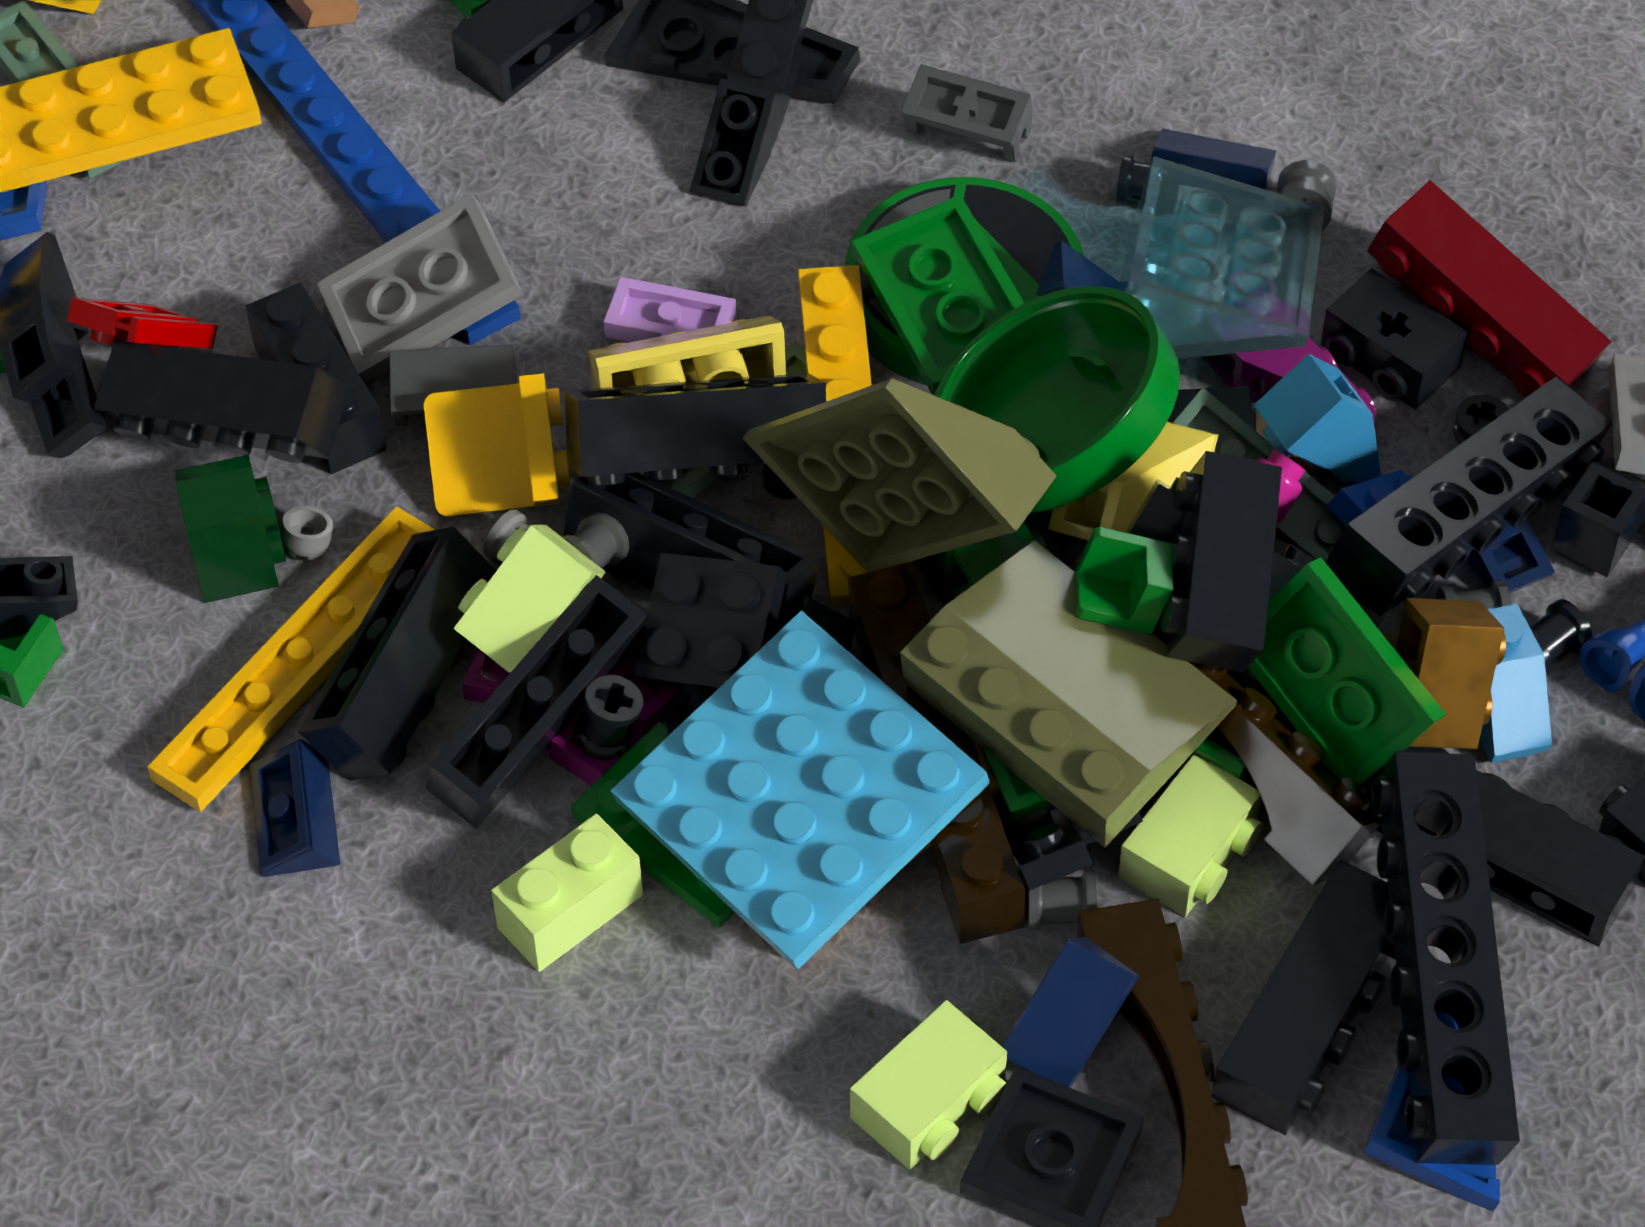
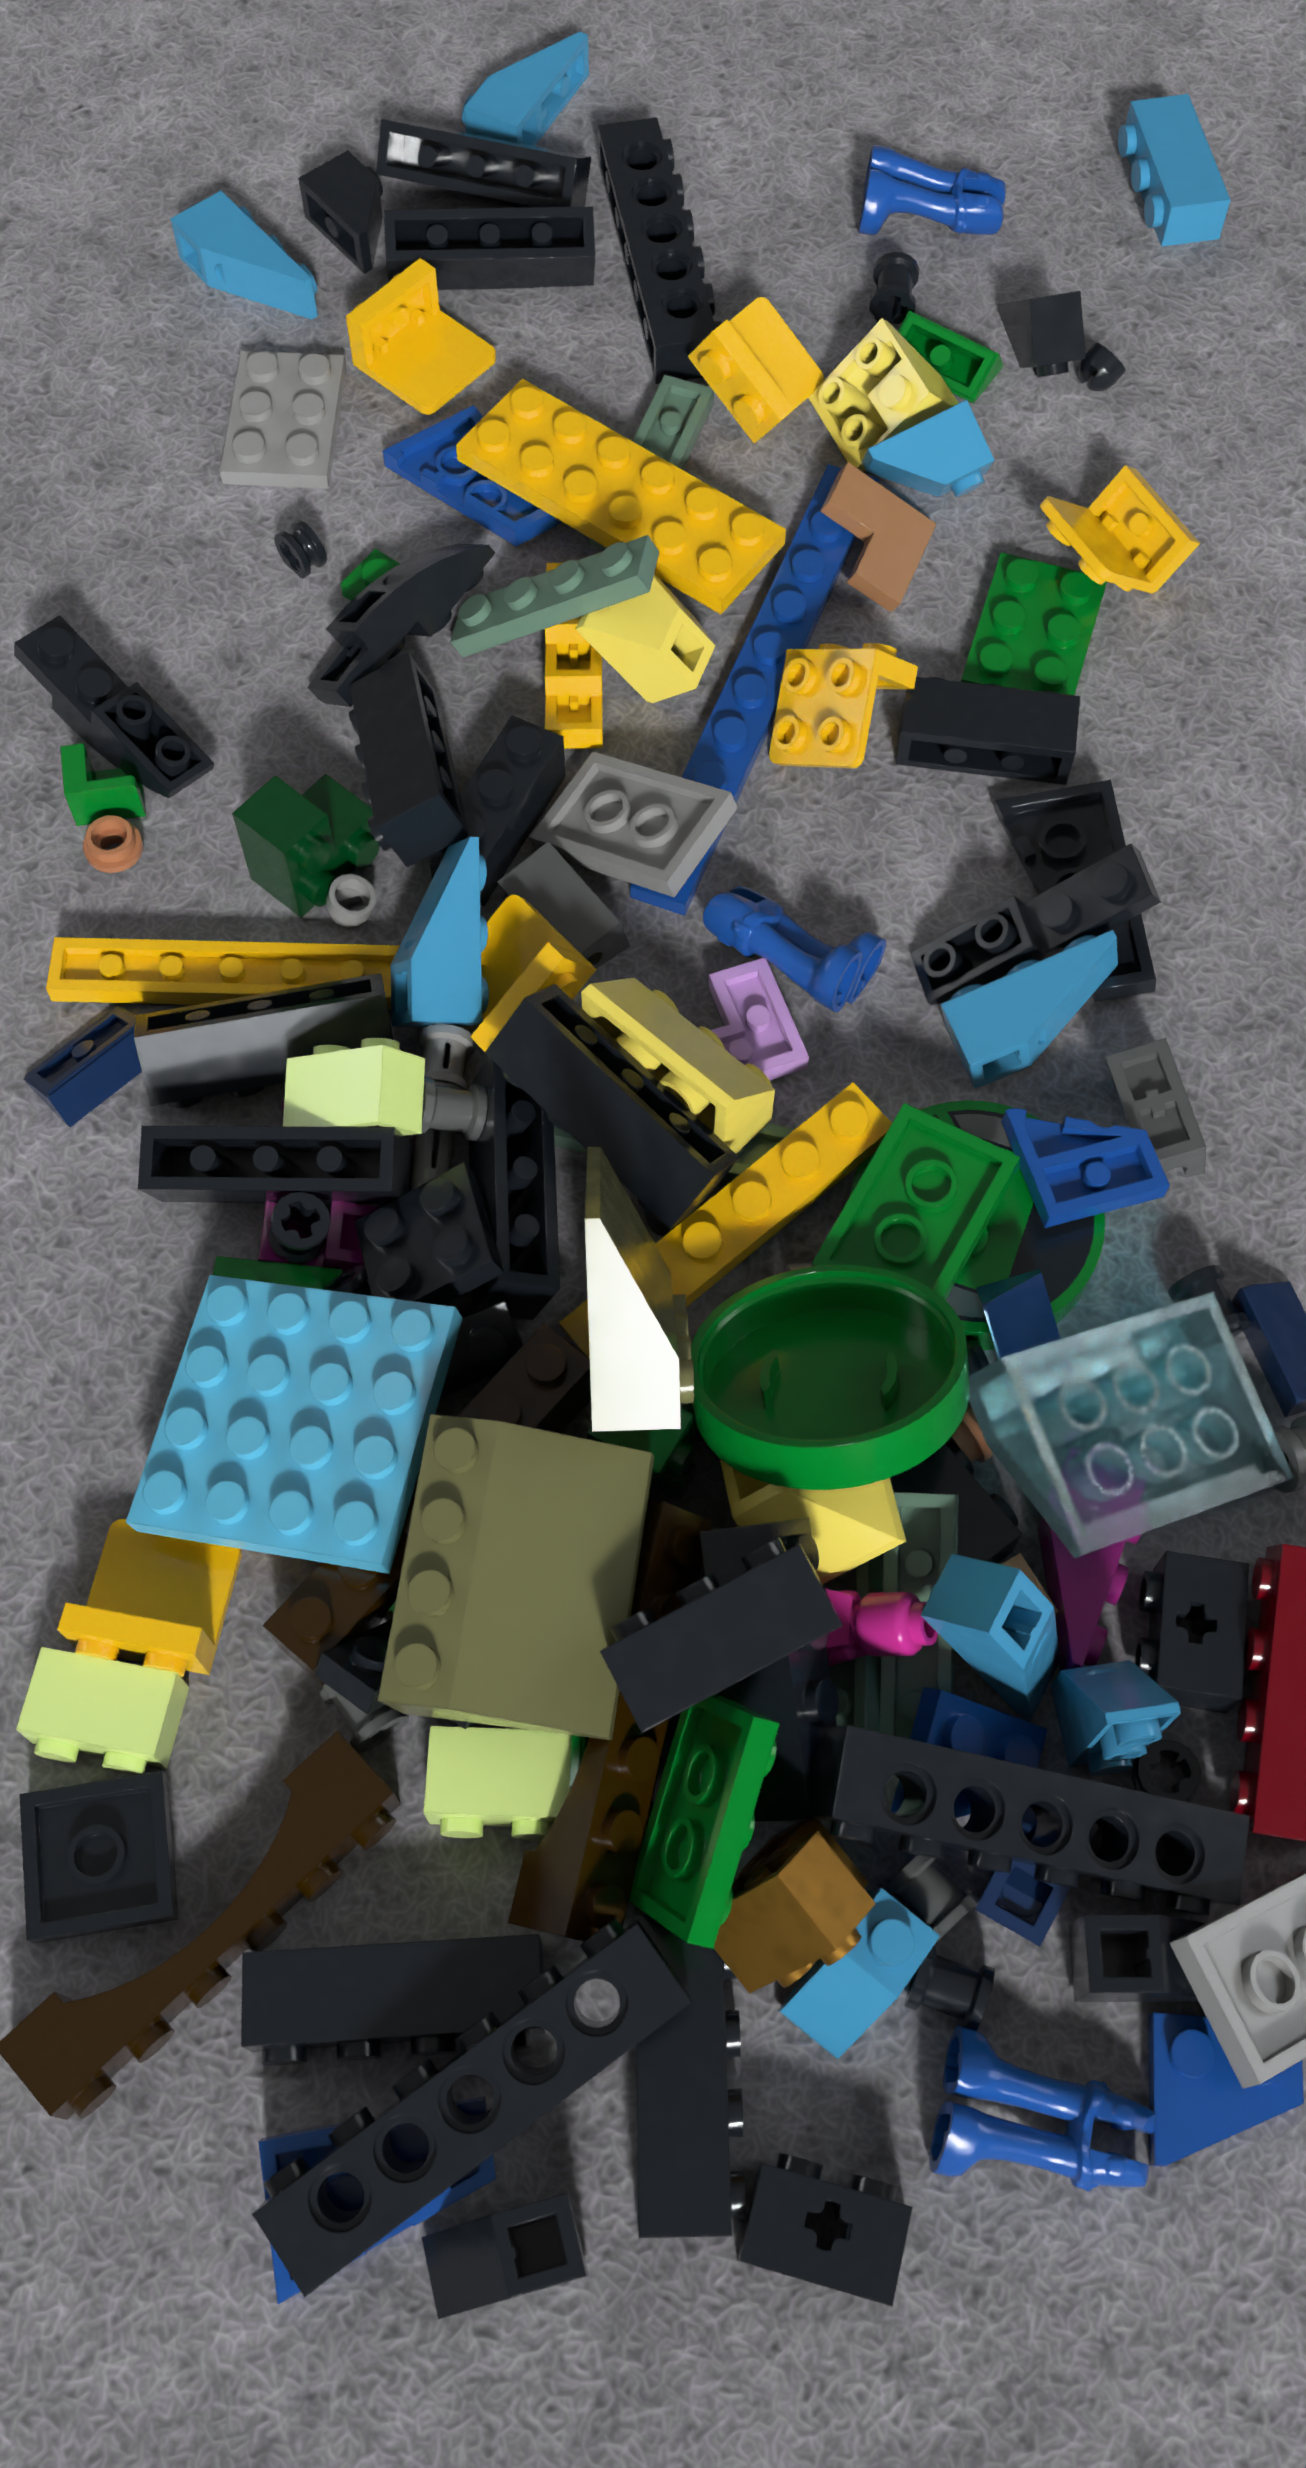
camera: 55 degrees right, 10 degrees up
(75, 668) = (108, 831): none -> nougat plate
(140, 324) = (449, 661): red plate -> none
(159, 204) = (555, 596): none -> sand green plate
(187, 242) = (573, 685): none -> yellow slope
(241, 173) = (651, 642): none -> light yellow slope
(426, 465) = (439, 960): none -> dark azure slope
(431, 96) = (830, 702): none -> yellow bracket
(567, 892) = (119, 1305): yellowish green brick -> none
(588, 267) = (761, 928): none -> blue piece
(816, 153) = (1017, 1016): none -> dark azure slope
(855, 1001) = (154, 1601): none -> yellow bracket
(988, 170) = (1083, 1167): none -> blue wing
(1069, 1011) = (234, 1784): dark blue slope -> none
(1123, 580) = (644, 1557): green panel -> none
(1428, 404) = (1110, 1715): none -> dark azure slope
(1564, 1016) = (504, 2255): none -> black slope

